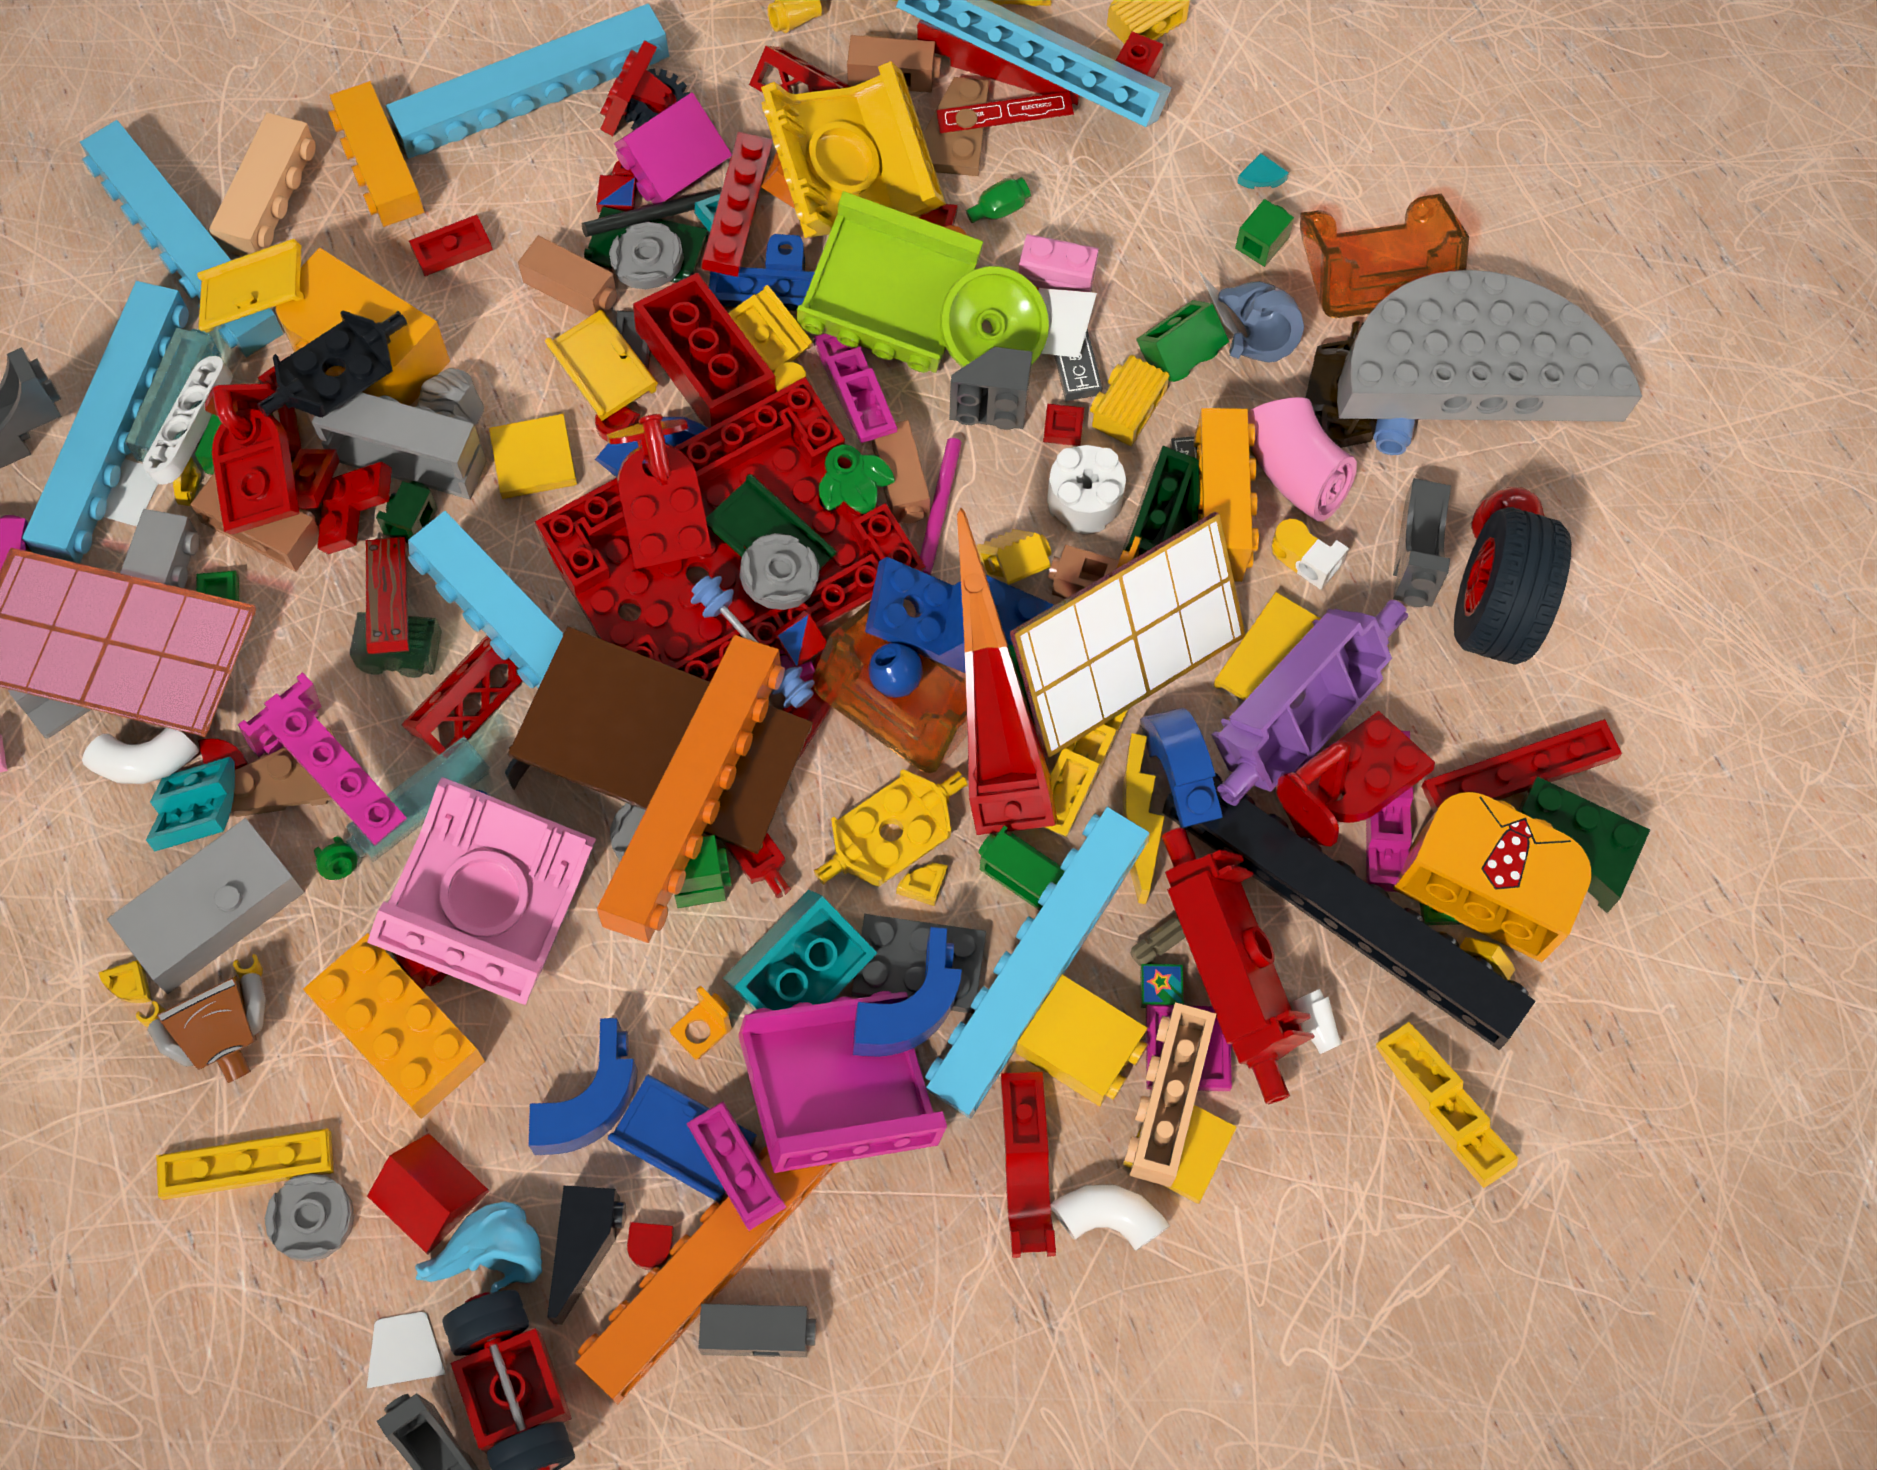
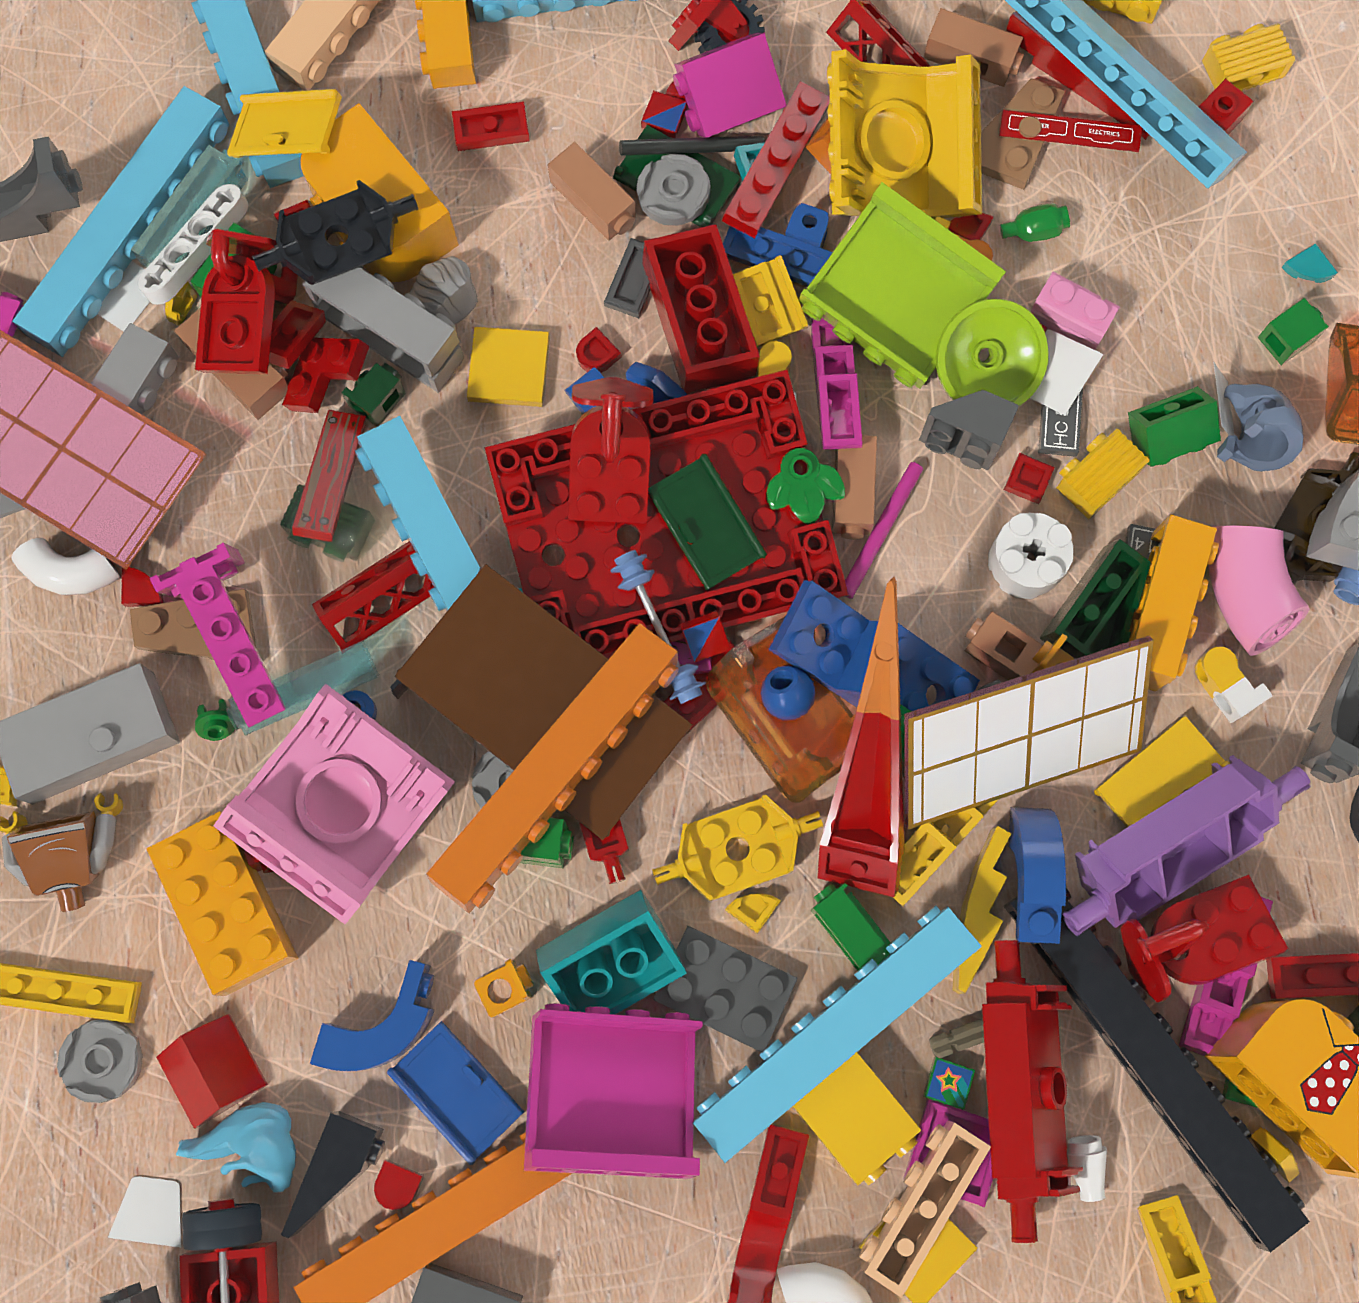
camera: 20 degrees right, 10 degrees up
(192, 804) = (99, 631): teal slope -> none
(219, 584) = (182, 419): green tile -> none
(594, 362) = (592, 284): yellow door -> none
(736, 1166) = (493, 1145): dark pink tile -> none
(779, 571) = (704, 563): light grey tile -> none
(906, 1024) = (701, 1056): blue arch -> none
(1014, 555) = (938, 609): yellow brick -> none

